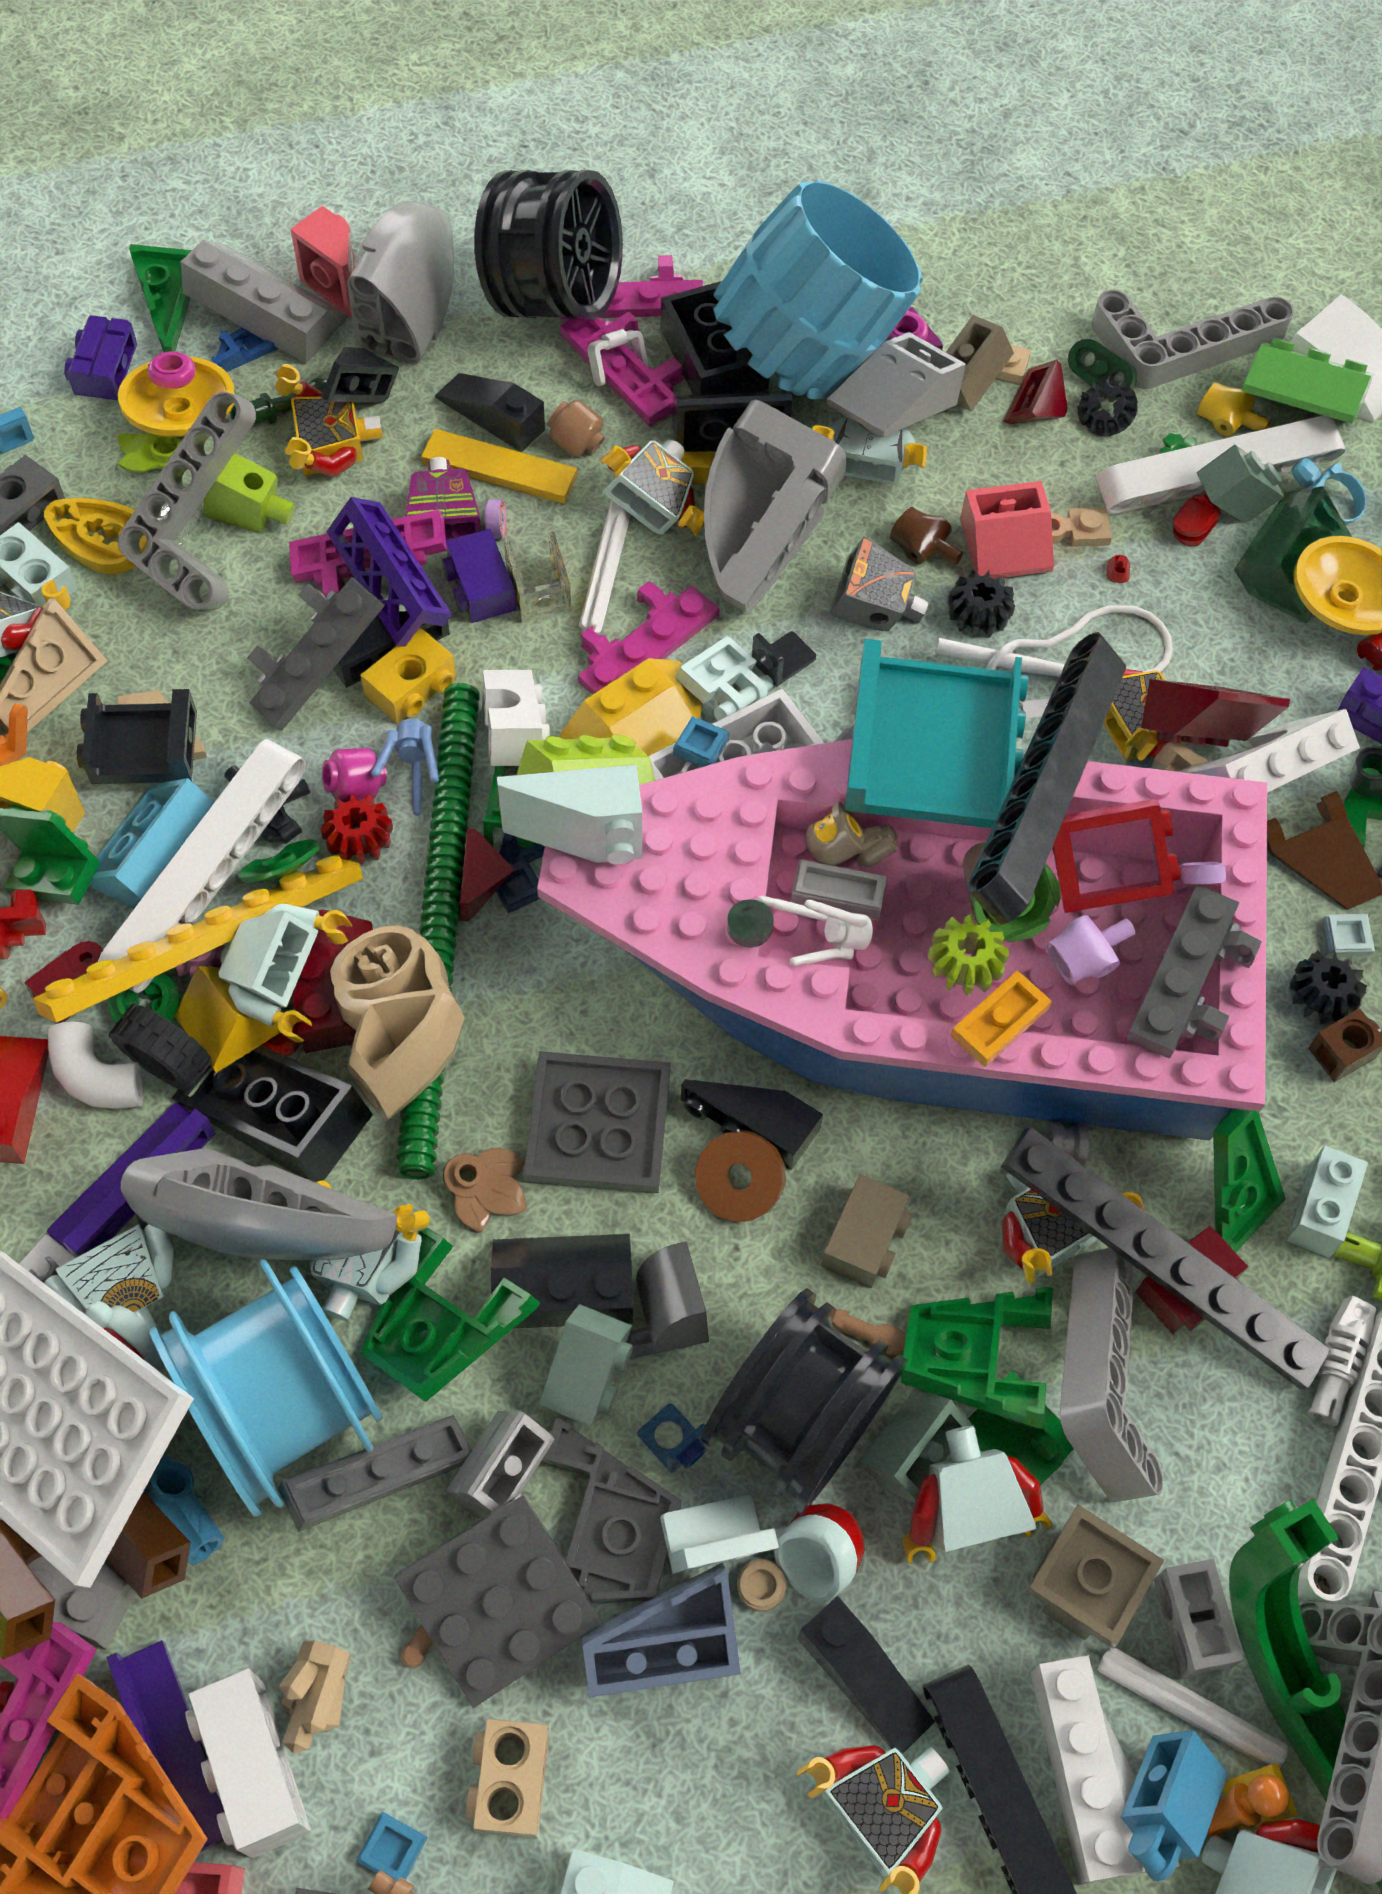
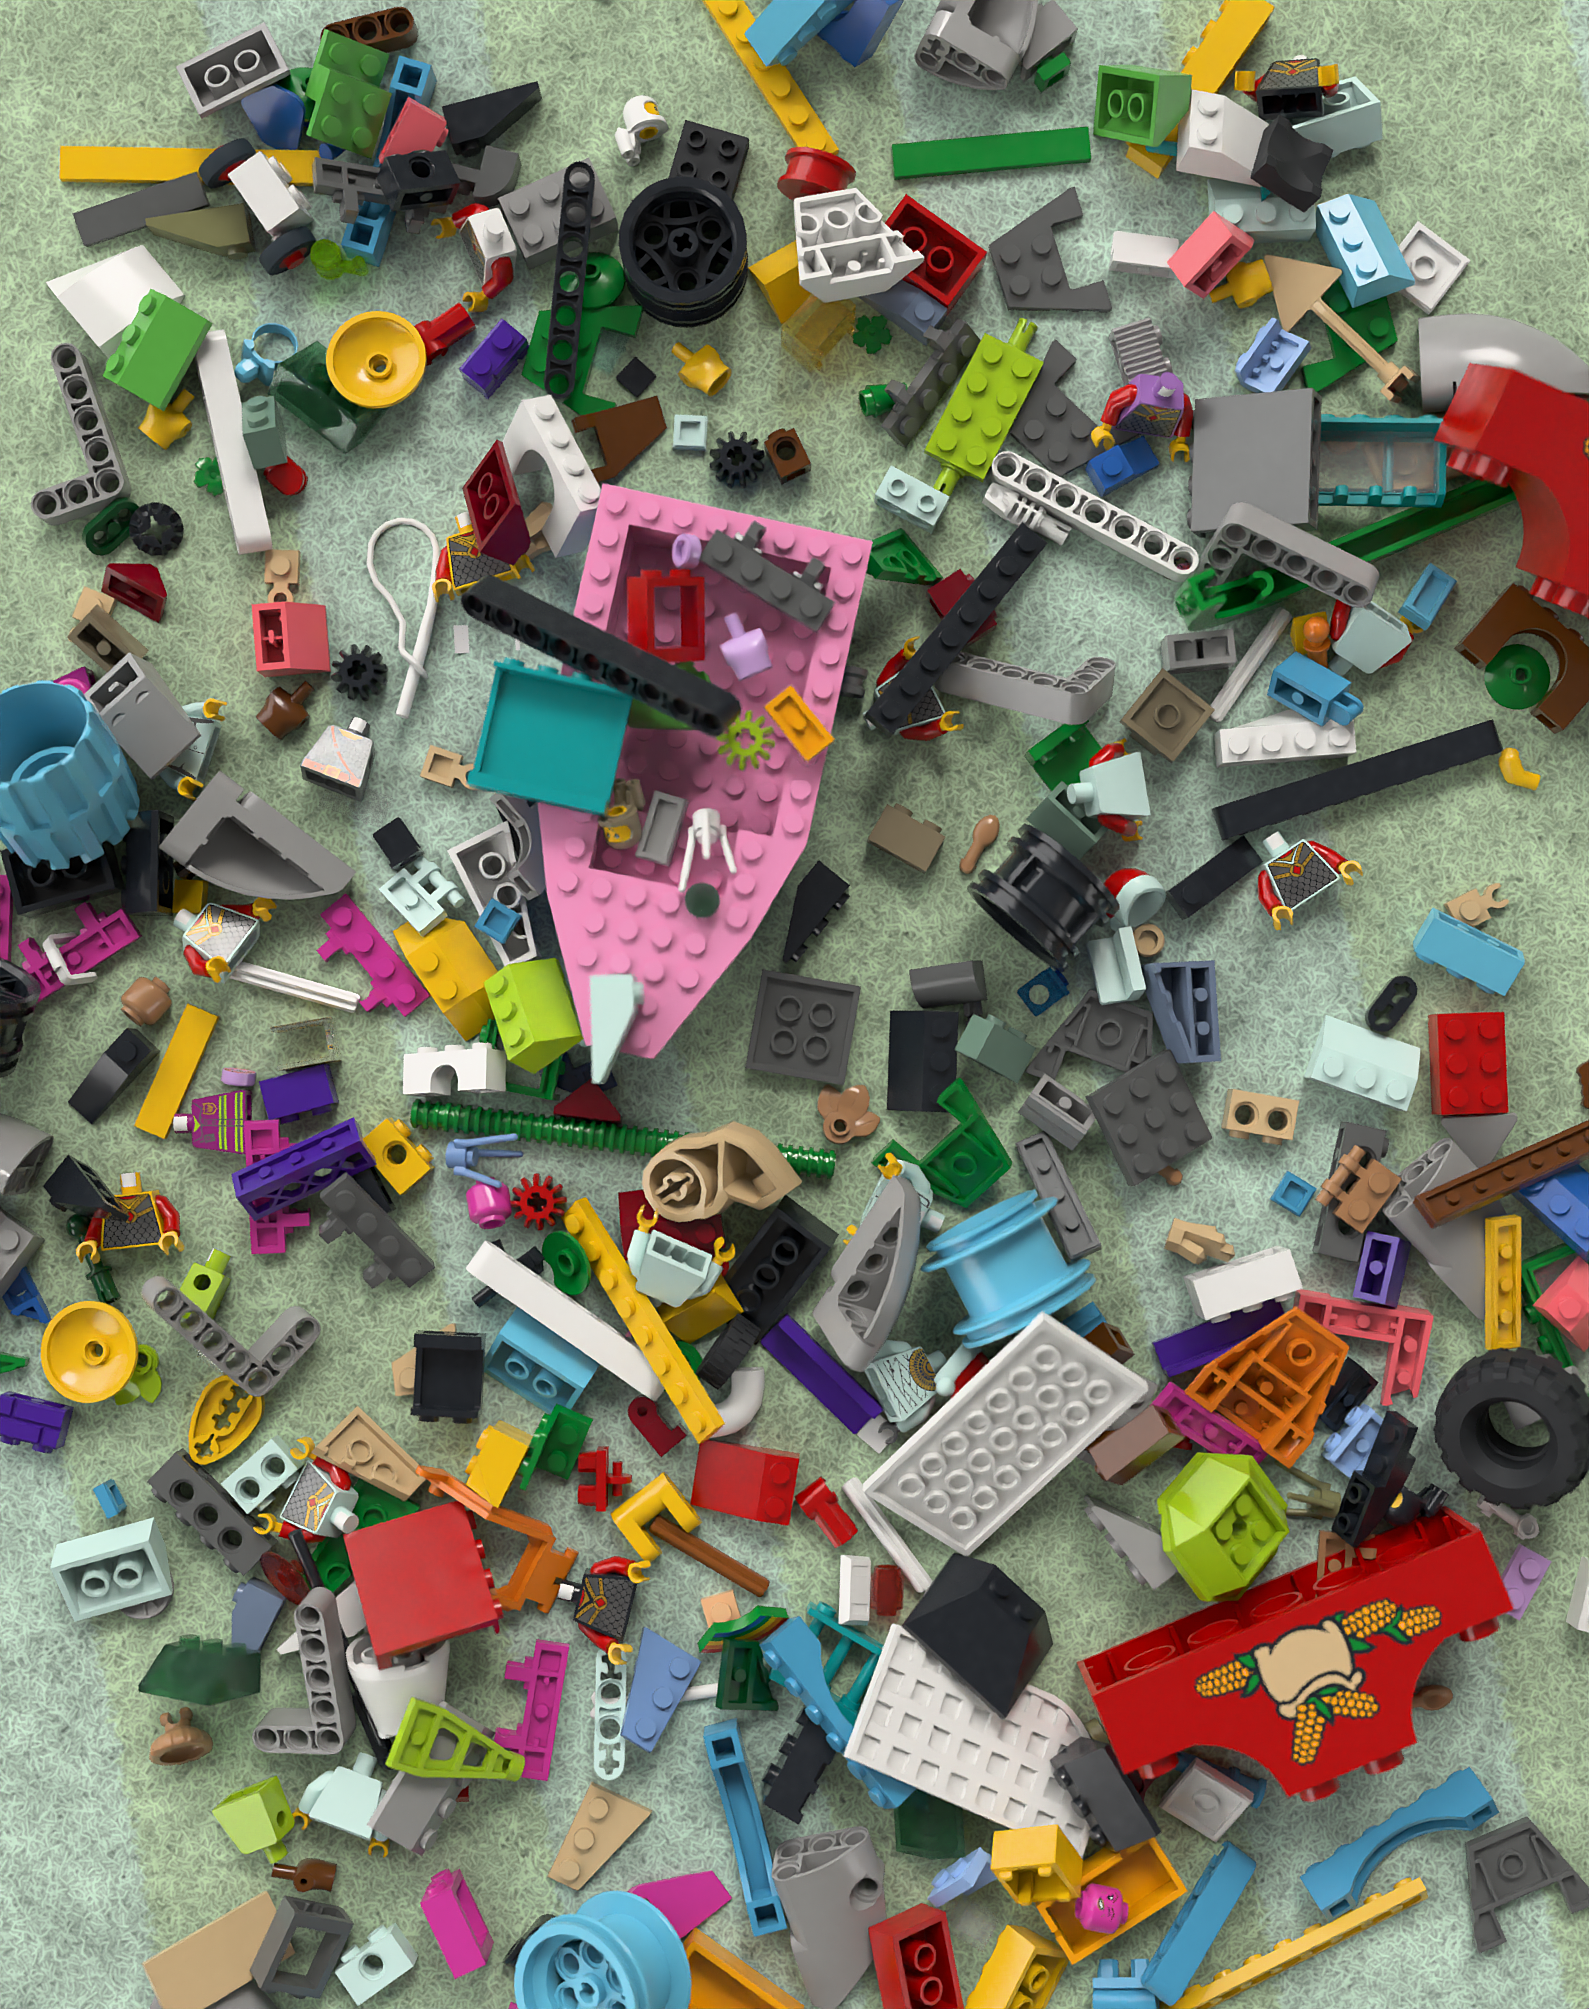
camera: 80 degrees left, 25 degrees up
(171, 370) = (52, 1355): dark pink piece -> none
(714, 1181) = (873, 934): dark orange tile -> none
(957, 1349) = (1002, 786): green wing -> none
(1118, 569) = (327, 549): red rock -> none

